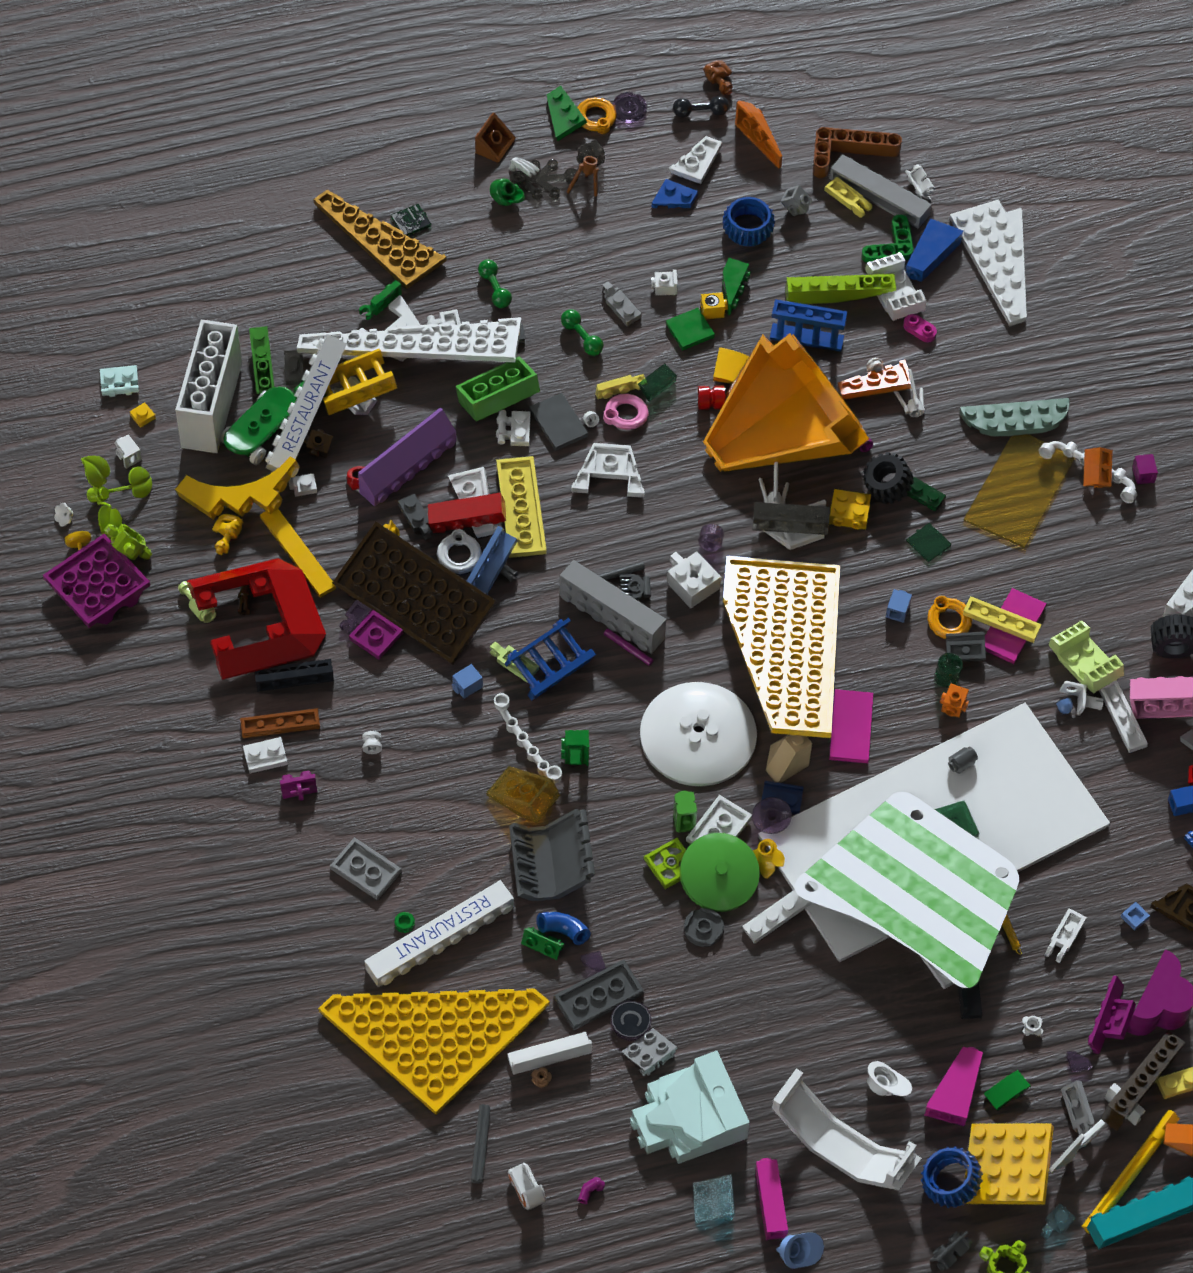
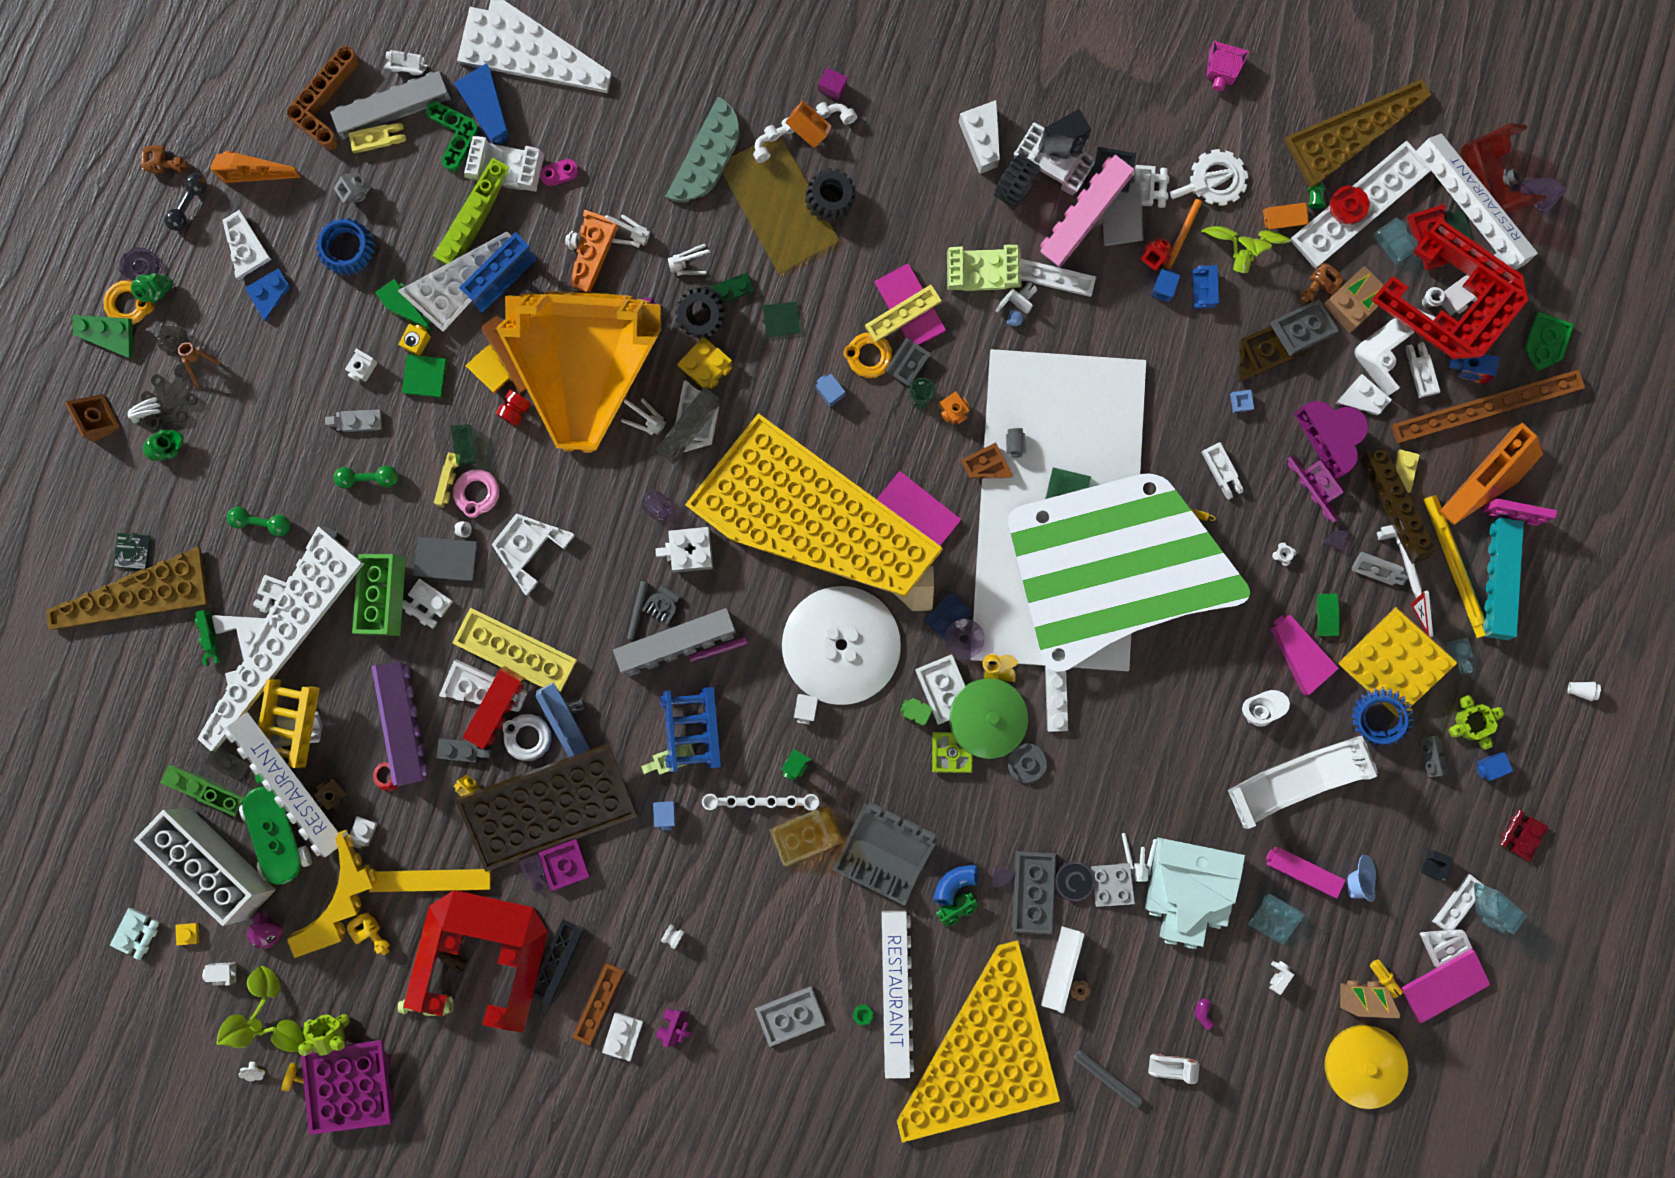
camera: 55 degrees left, 25 degrees up
(179, 460) = (263, 933): none -> magenta piece
(620, 120) = (151, 287): none -> green head
(627, 733) = (805, 708): none -> white brick
(665, 1234) = (1282, 979): none -> white bracket
(676, 1063) = (1140, 871): none -> white plant
(757, 299) = (439, 291): none -> white wing
(915, 445) = (677, 262): none -> white plant
(928, 749) = (986, 464): none -> dark orange wing
(1063, 506) = (836, 182): none -> black tyre

